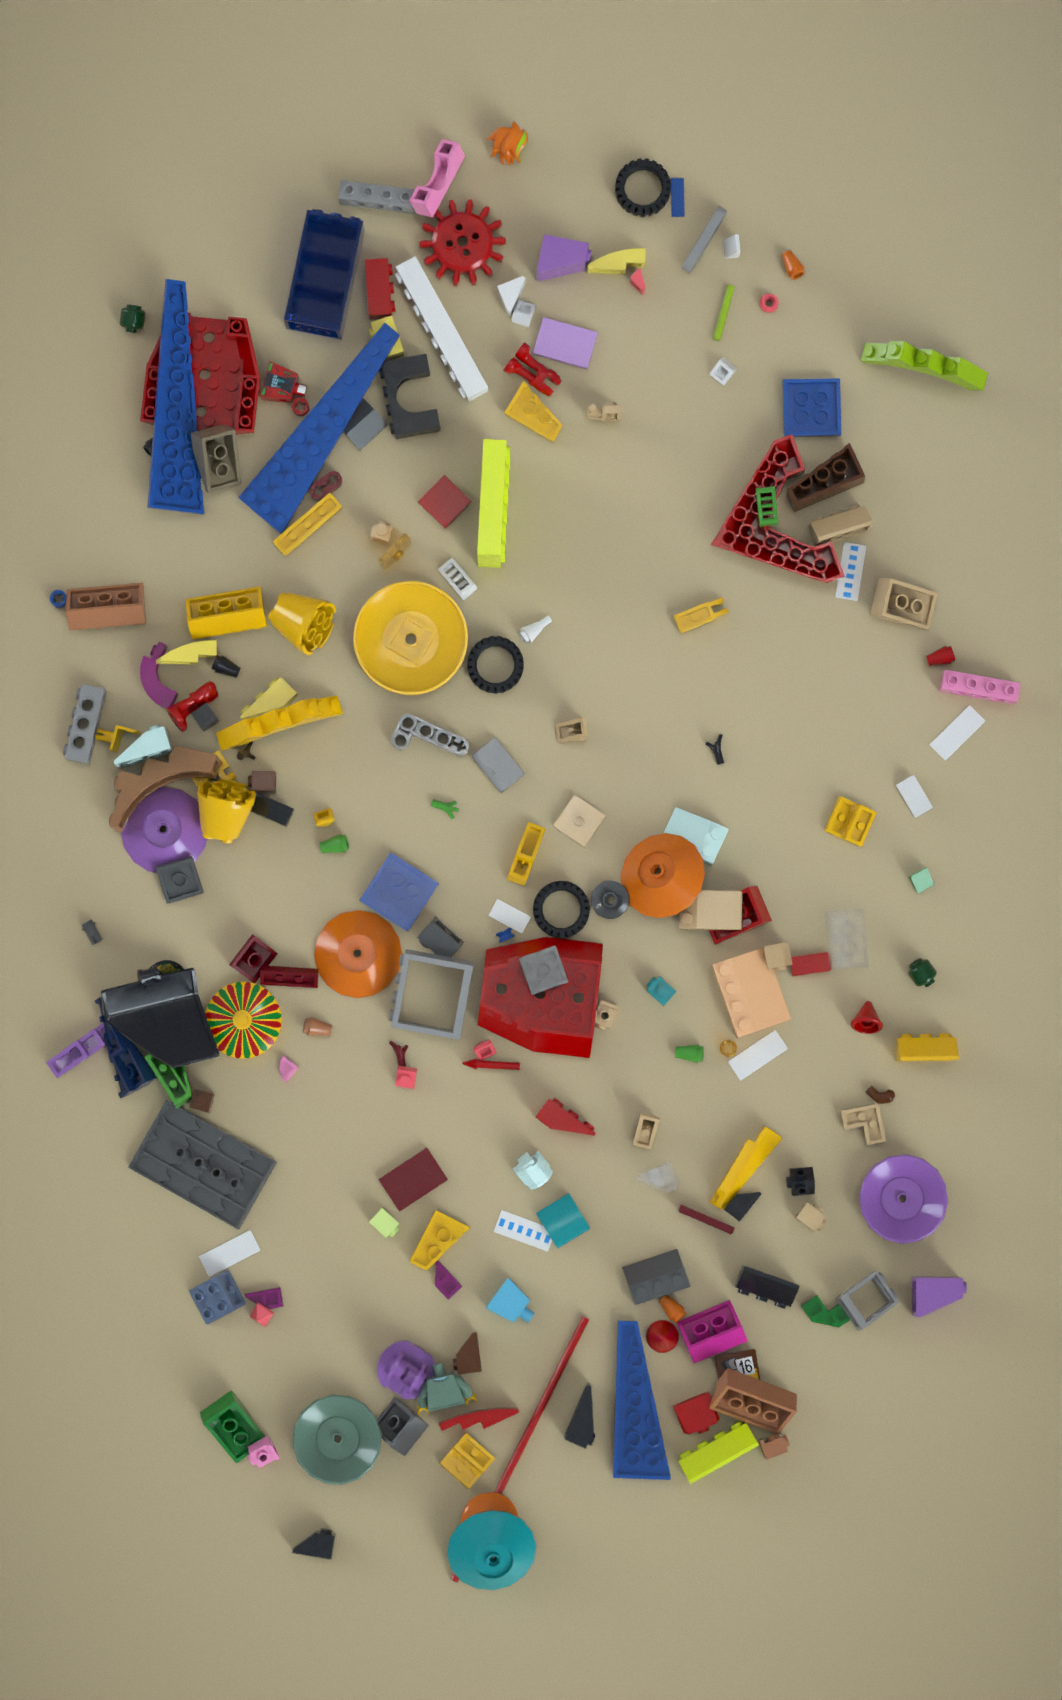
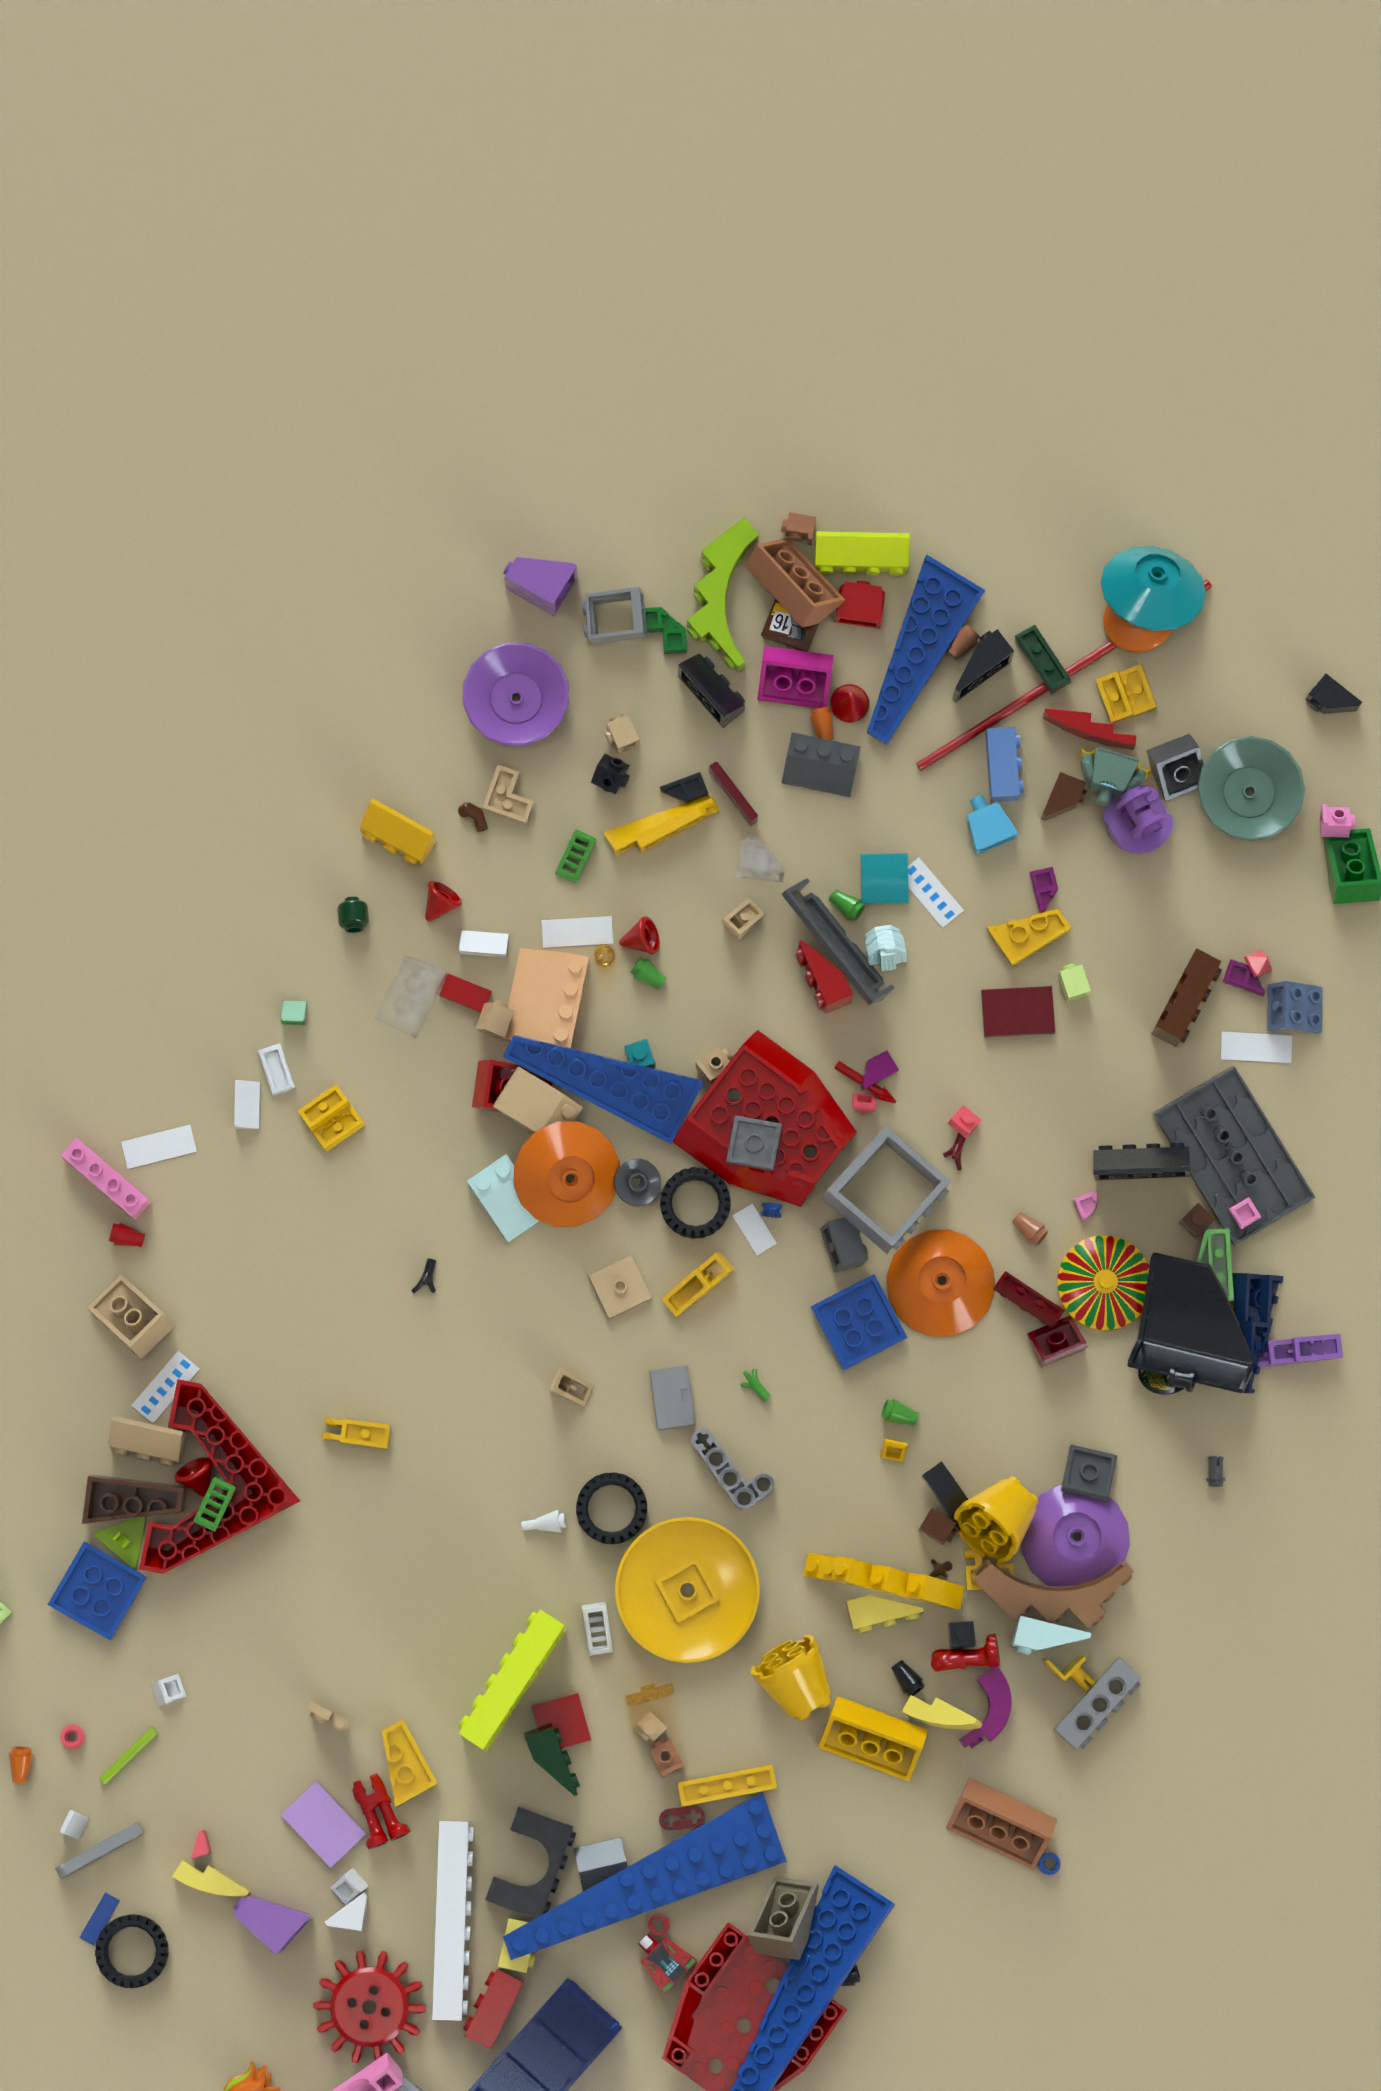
camera: 150 degrees left, 5 degrees down
(171, 1125) = (1244, 1213): none -> bright pink tile
(263, 1117) = (1141, 1162): none -> black slope
(298, 1258) = (1186, 998): none -> reddish brown wedge
(351, 519) = (672, 1764): none -> nougat brick
(441, 473) = (547, 1753): none -> dark green slope
(488, 1079) = (878, 1069): none -> magenta tile
(525, 1354) = (1003, 764): none -> medium blue brick
(541, 1450) = (1043, 659): none -> dark green tile
(569, 1150) = (836, 943): none -> dark grey slope
(577, 1185) = (847, 905): none -> bright green cone
(606, 1429) = (963, 642): none -> nougat cone
(650, 960) = (633, 1092): none -> blue wing
(708, 1076) = (642, 937): none -> red hat
(793, 521) = (195, 1475): none -> red hat
(798, 1106) = (591, 841): none -> bright green slope
(814, 452) = (124, 1539): none -> lime piece
(815, 1390) = (721, 558): none -> lime arch
(818, 1007) = (483, 944): none -> white slope
(909, 833) = (276, 1069): none -> white tile

